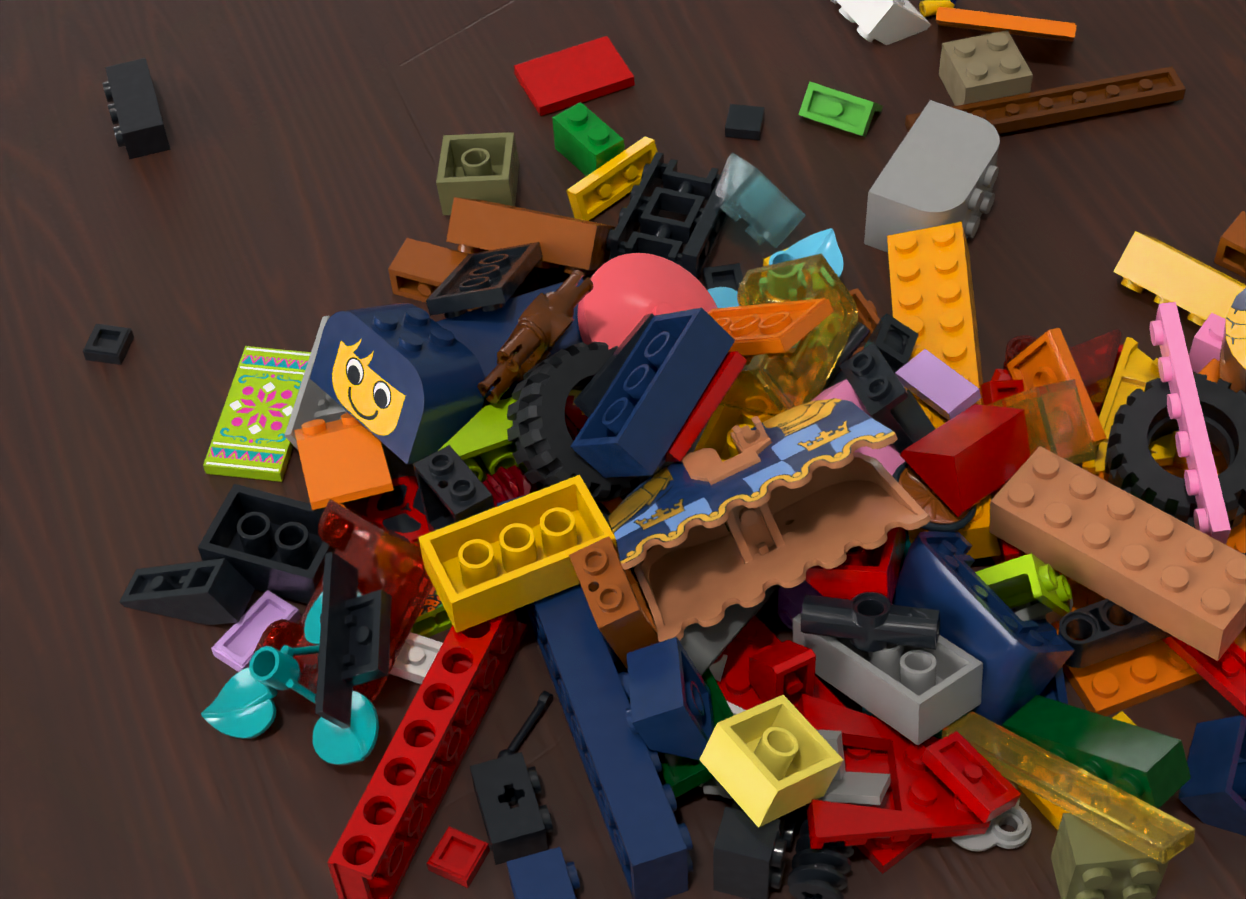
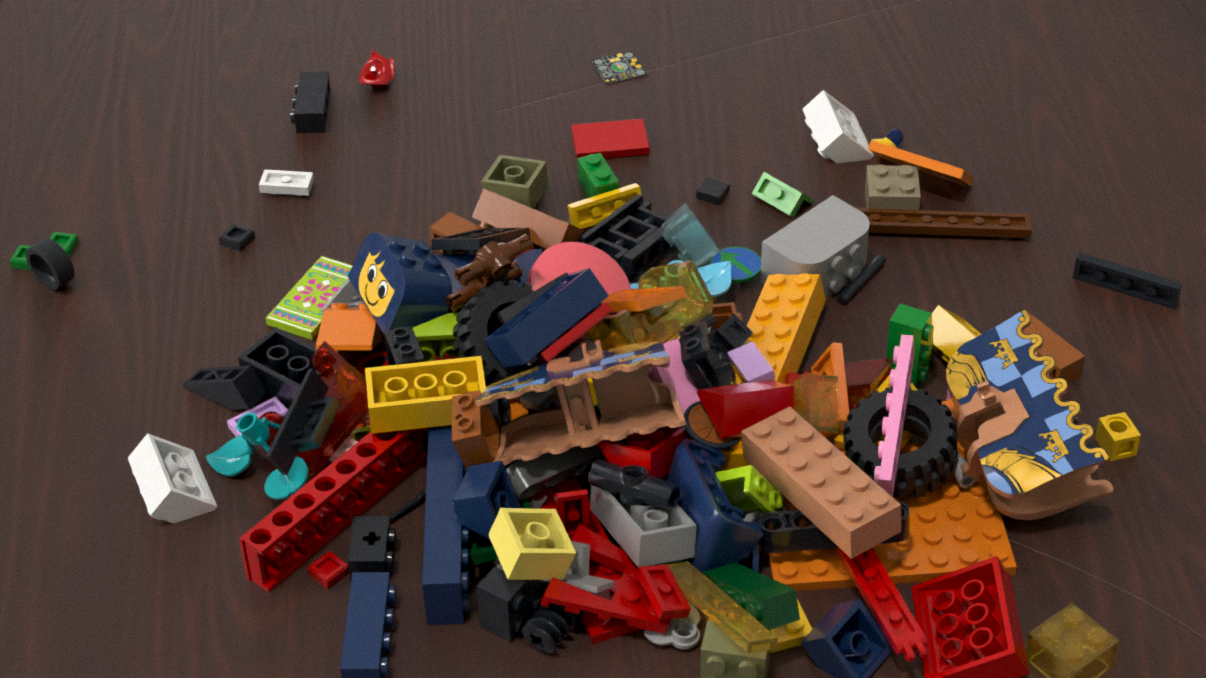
camera: 15 degrees right, 10 degrees down
(148, 241) = (286, 182): none -> white plate
(166, 772) = (170, 480): none -> white slope
(211, 41) = (377, 71): none -> red hat
(840, 216) = (744, 263): none -> blue piece
(997, 209) = (861, 279): none -> black bar
(1128, 295) = (918, 323): none -> green wedge

